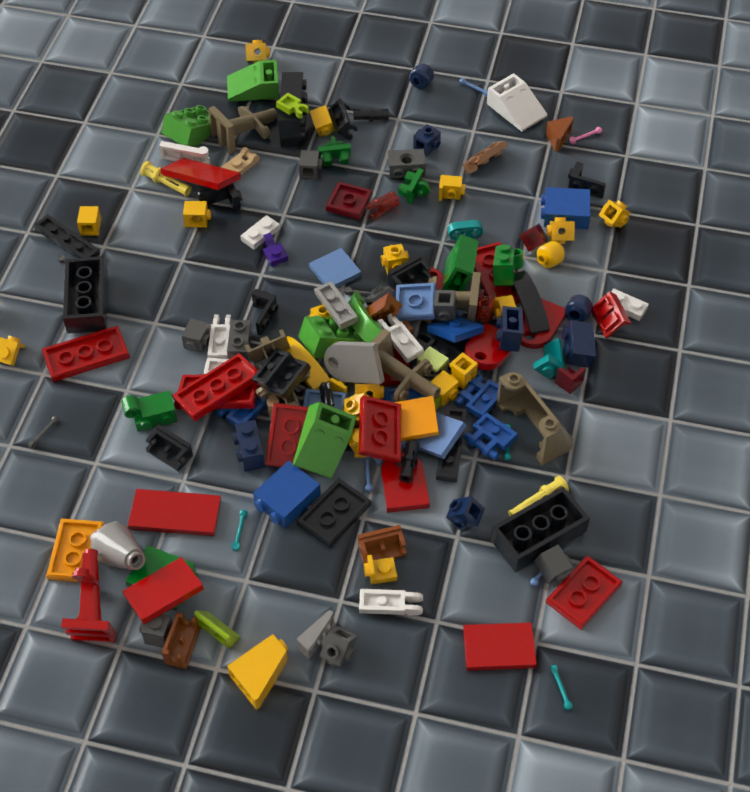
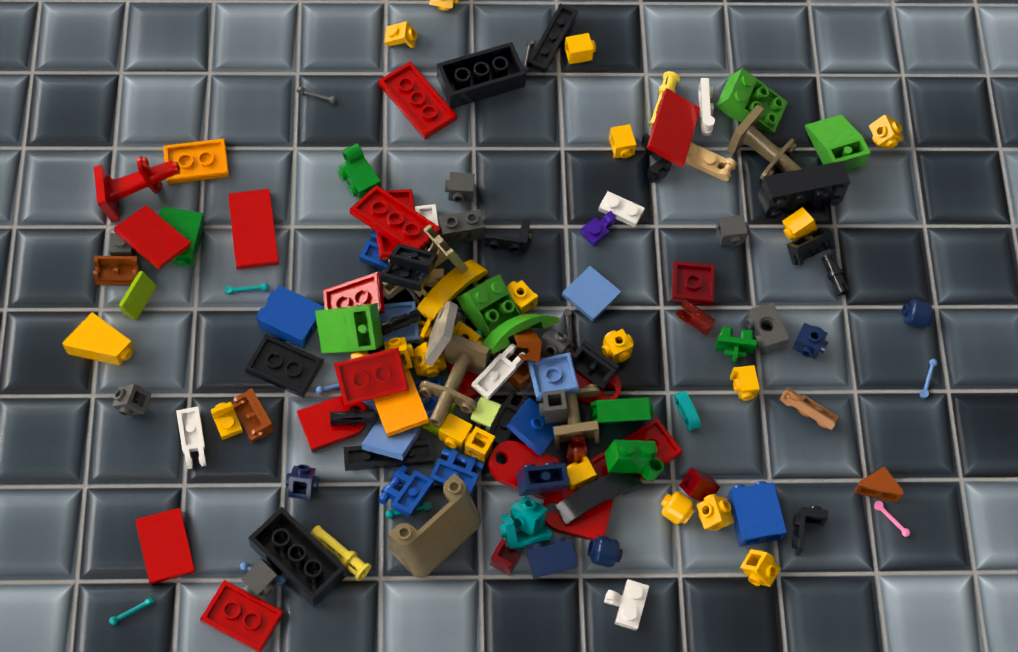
camera: 70 degrees right, 10 degrees up
(117, 547) = (192, 189): light grey cone -> none
(169, 448) = (321, 202): black hinge -> none
(219, 338) = (469, 204): white hinge -> none
(250, 447) = (338, 268): dark blue brick -> none
(291, 104) = (785, 181): lime plate -> none
(311, 639) = (135, 375): light grey slope -> none
(334, 149) = (762, 259): green hips -> none
(336, 305) = (522, 299): light grey plate -> none
(515, 102) = (909, 427): white slope -> none
(536, 348) = (528, 515): none -> teal brick
(614, 320) = (599, 595): red piece -> none

